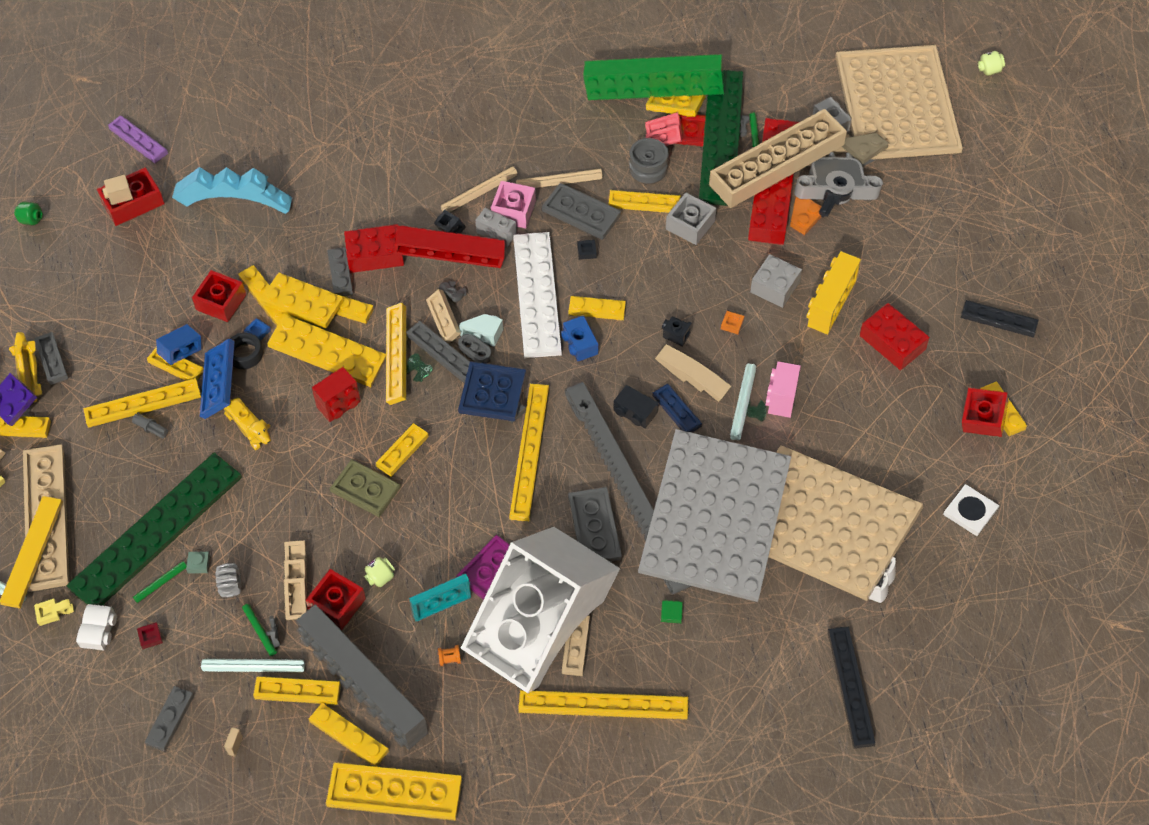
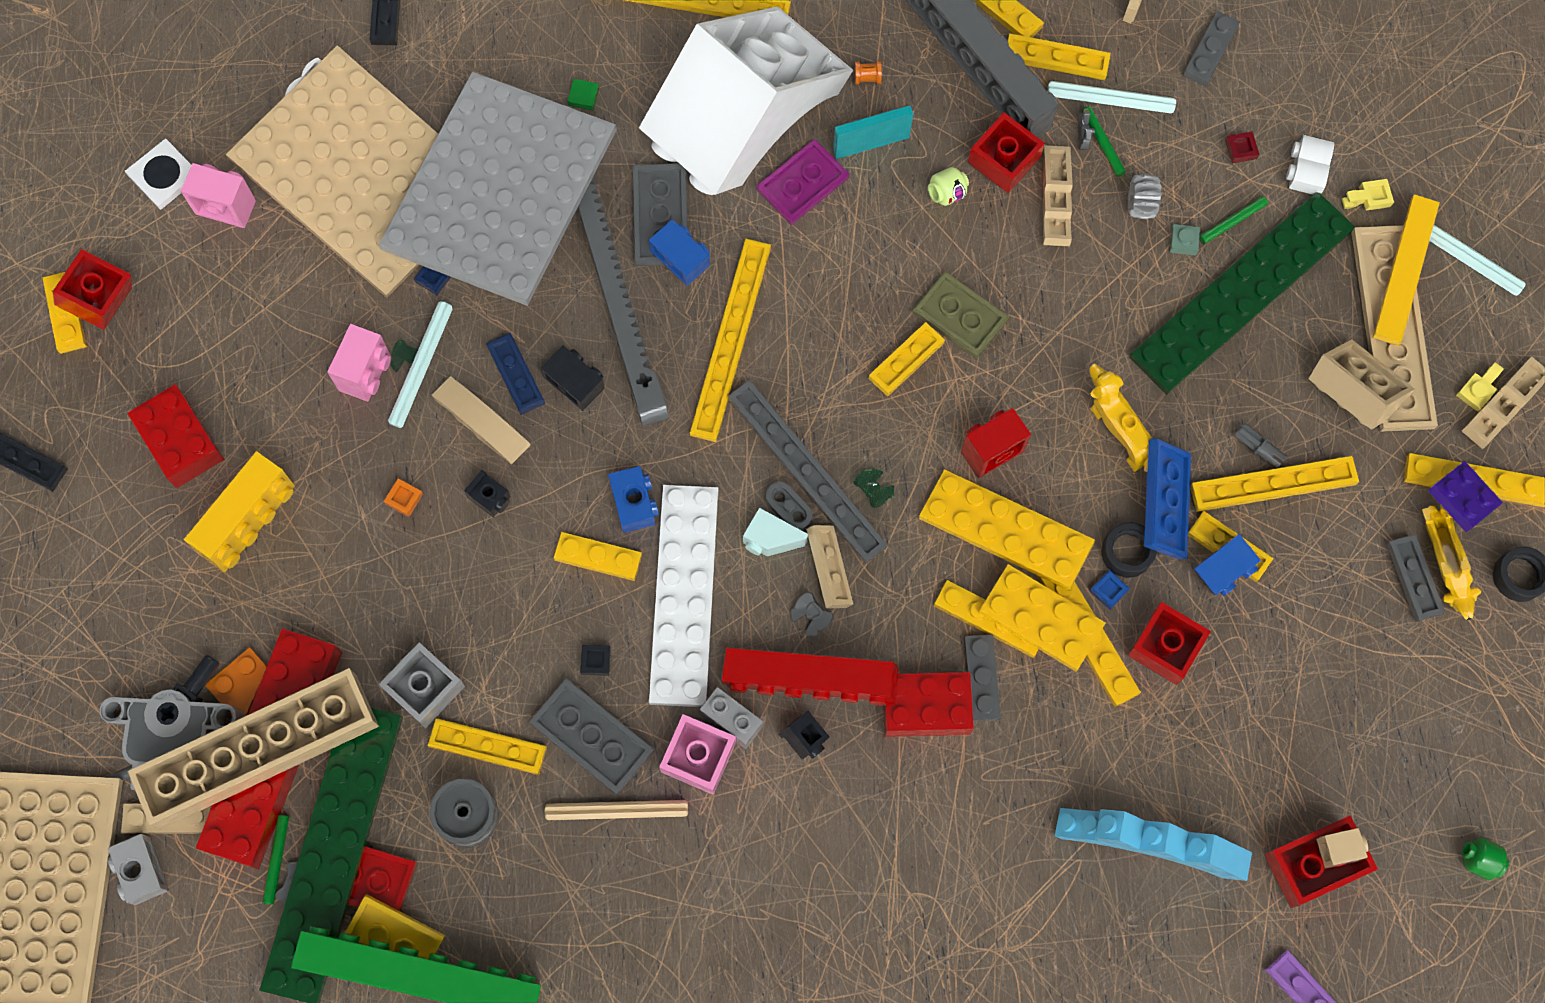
camera: 175 degrees left, 15 degrees up
(74, 466) = (1360, 383): none -> tan slope
(396, 354) = (904, 513): yellow plate -> none
(479, 190) = (749, 806): tan axle -> none
(492, 391) = (771, 417): dark blue plate -> none
(574, 489) = (680, 252): none -> blue brick
(665, 129) = (426, 876): coral slope -> none
(776, 280) = (320, 555): light grey brick -> none
(865, 146) = (103, 789): dark tan wing -> none
(922, 485) = (218, 195): none -> bright pink brick

